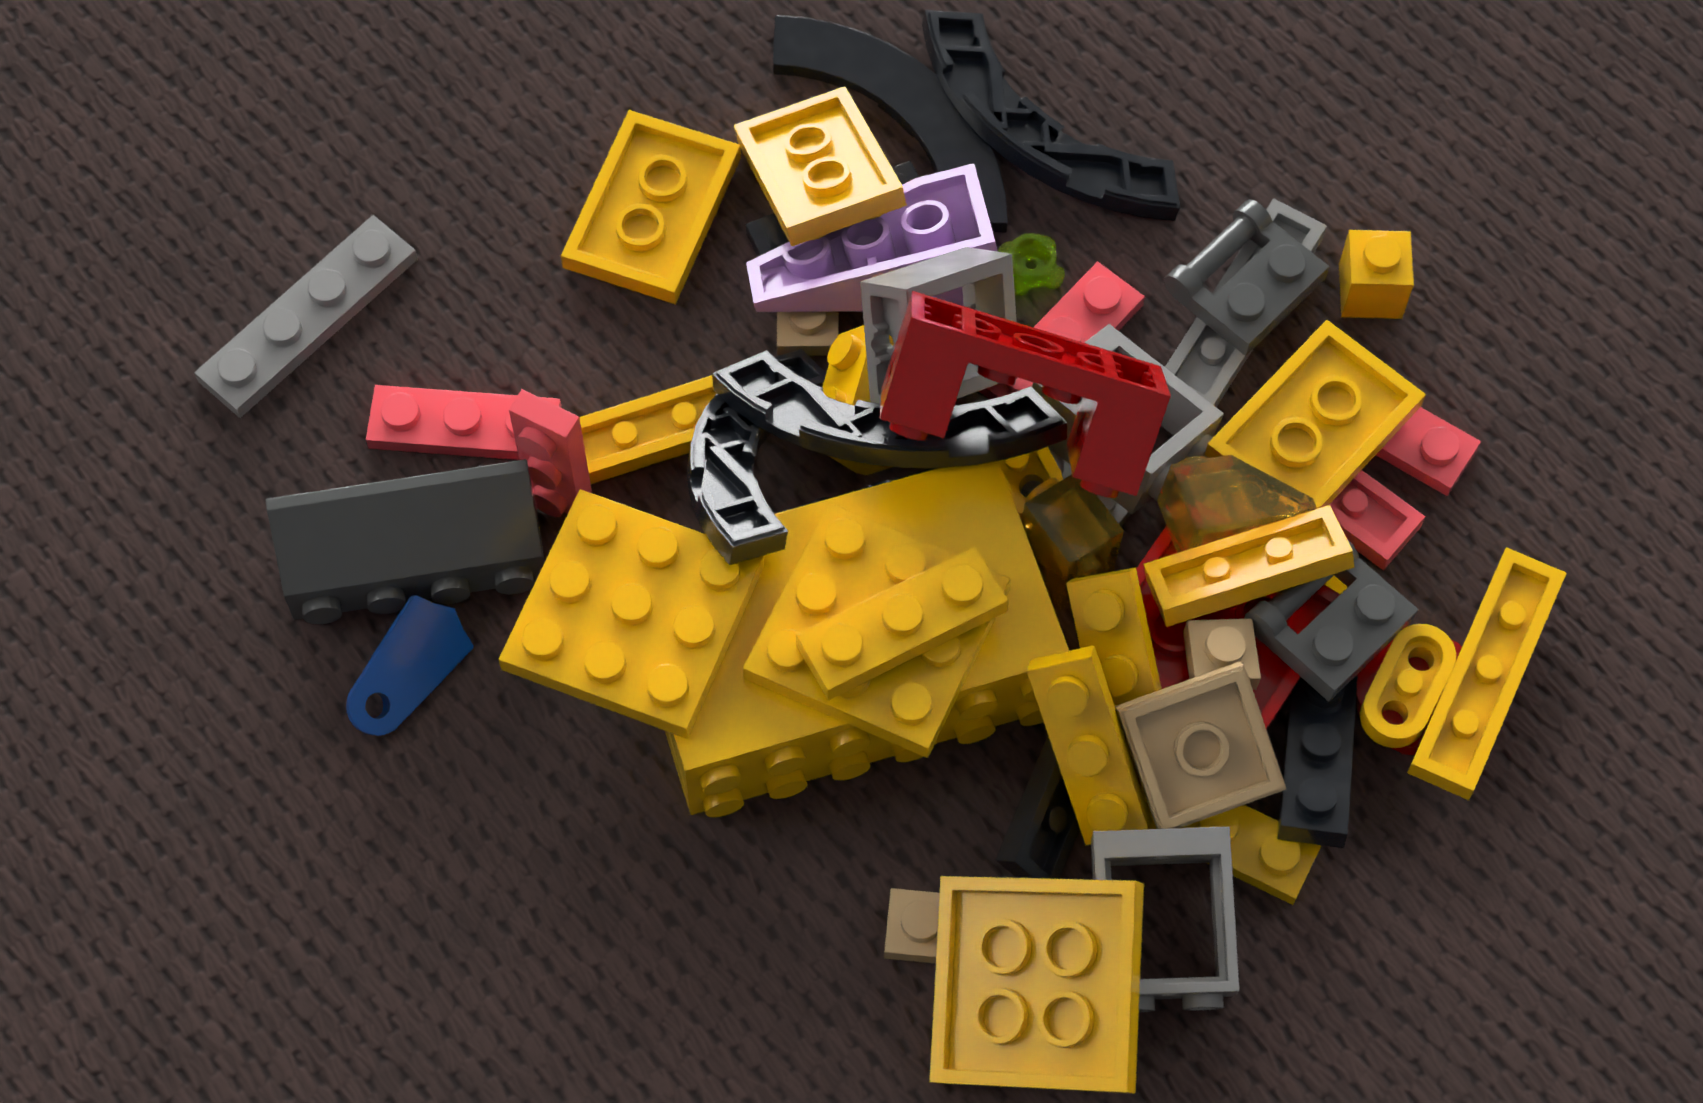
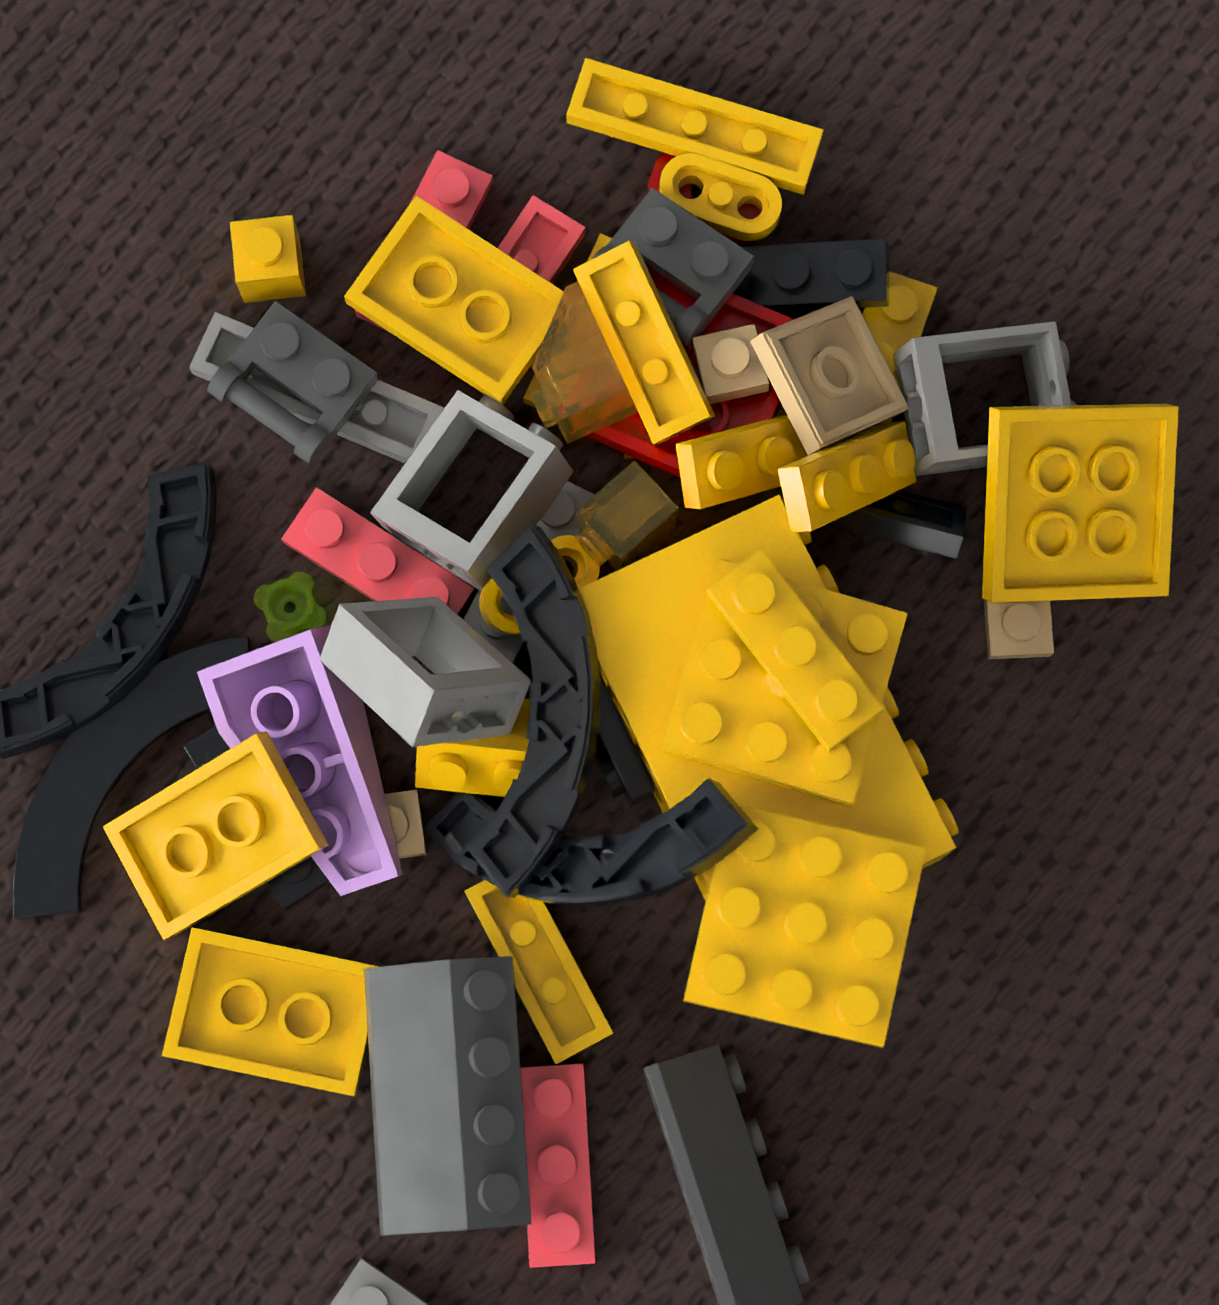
camera: 100 degrees left, 15 degrees up
(408, 664) = (840, 1165): blue piece -> none
(543, 326) = (447, 1096): none -> slope
(553, 450) = (627, 1048): coral plate -> none
(1119, 394) = (497, 625): red plate -> none

